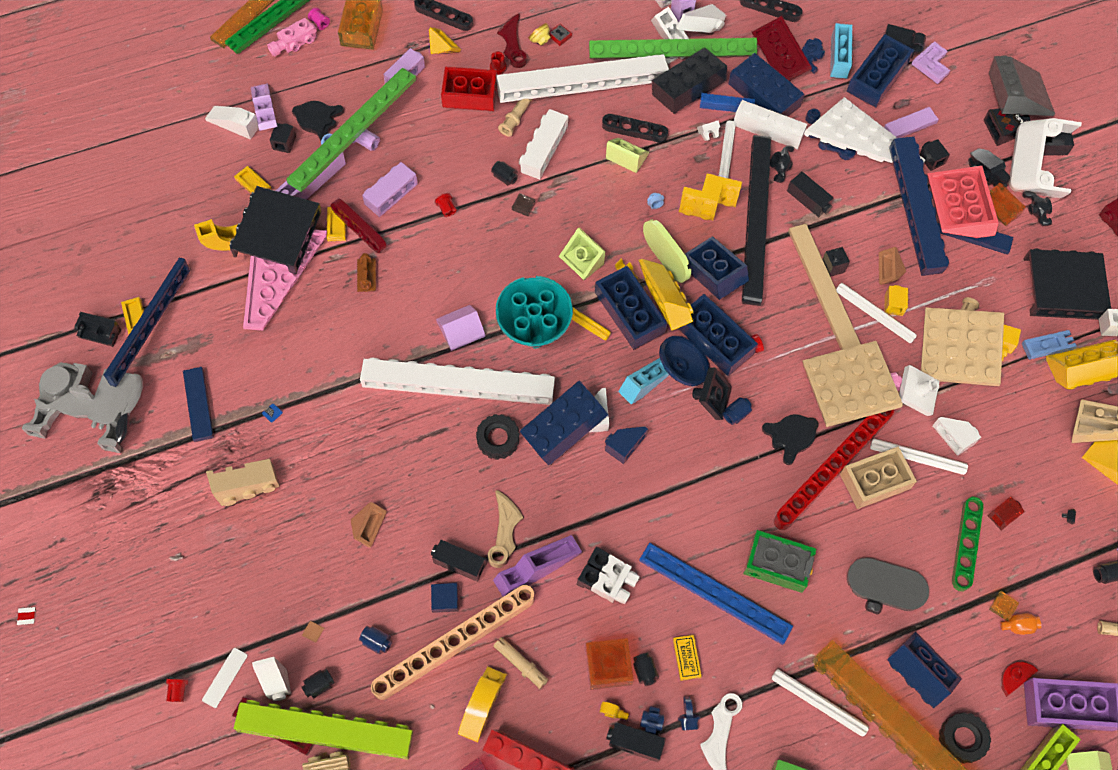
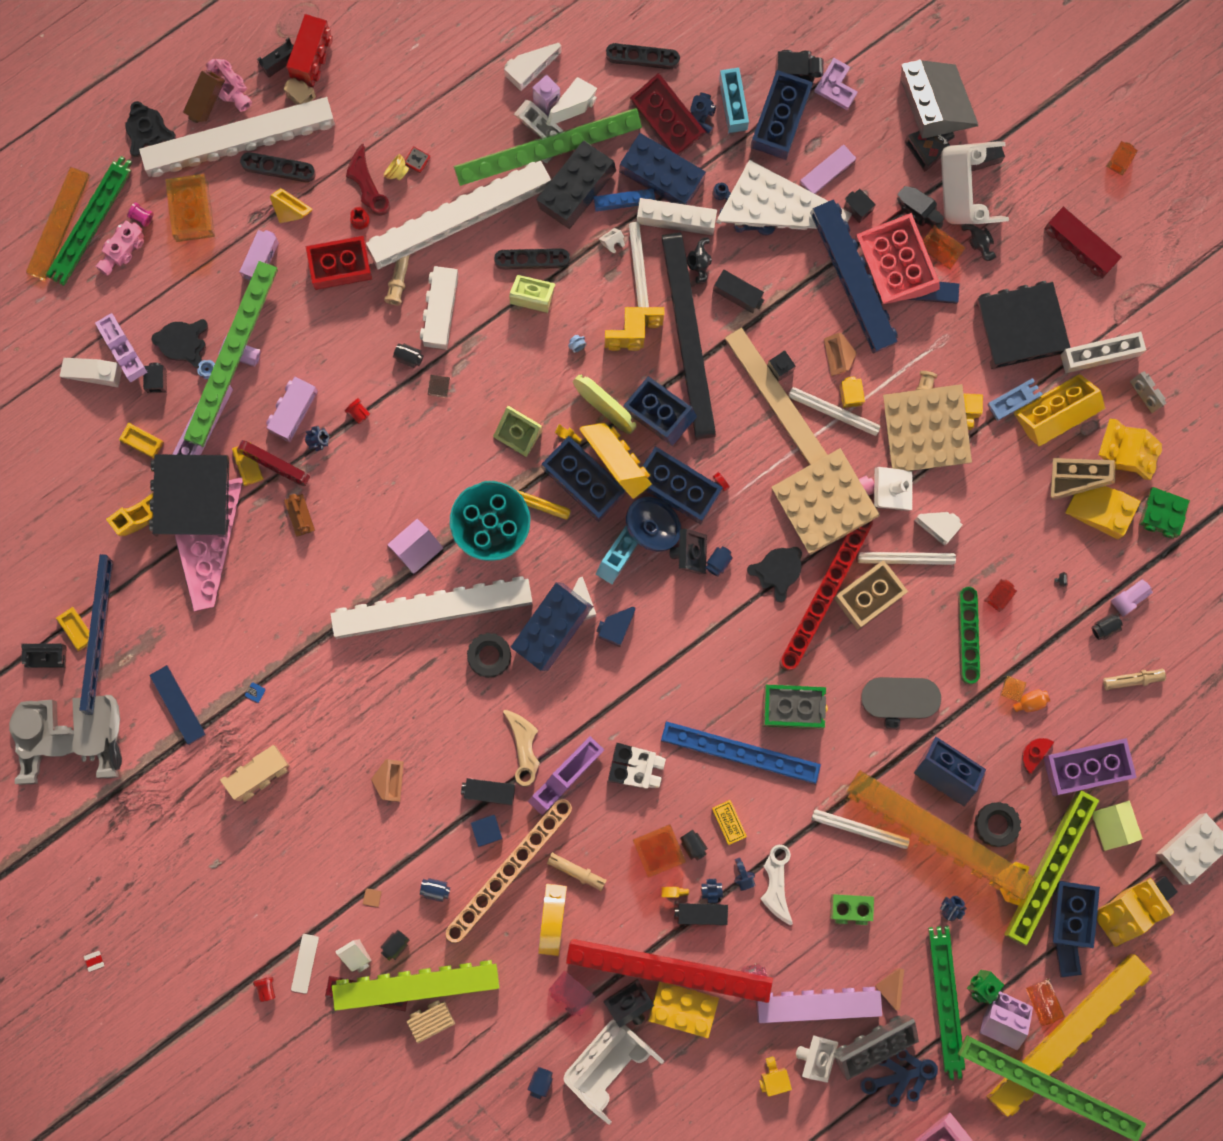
camera: 20 degrees left, 15 degrees up
(403, 216) = (317, 438): none -> dark blue gear

